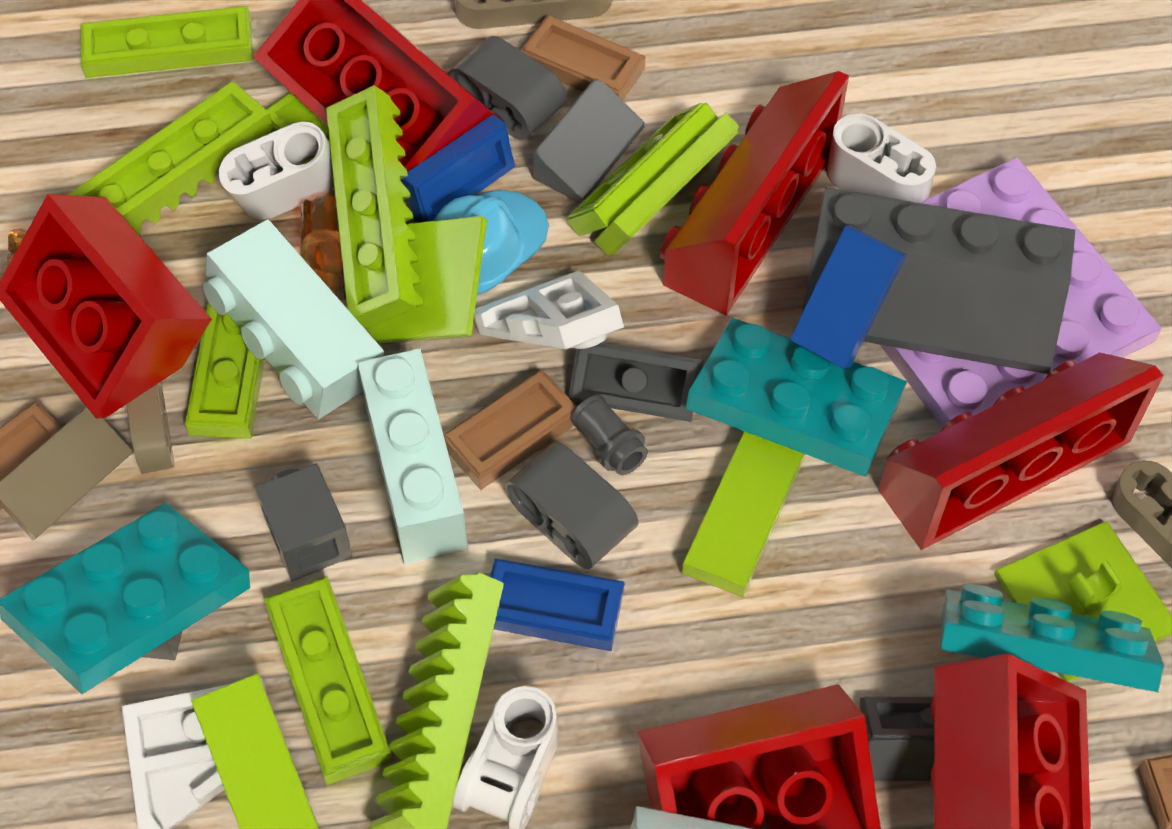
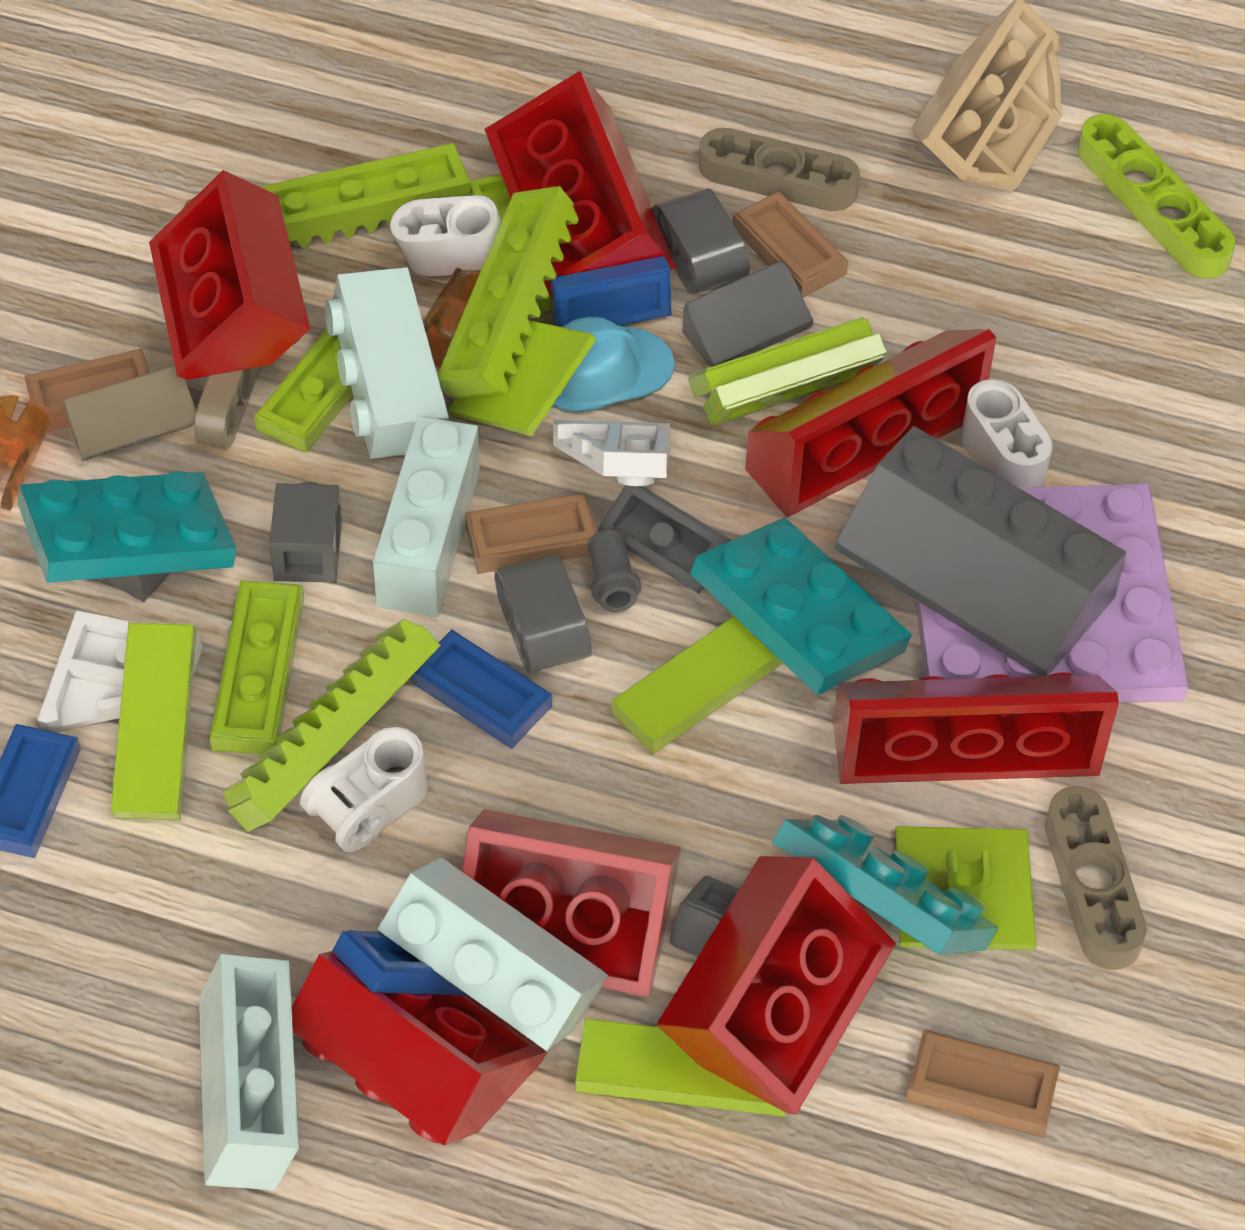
camera: 25 degrees right, 5 degrees down
(166, 42) = (421, 90): lime tile -> none
(847, 296) = (880, 529): blue tile -> none

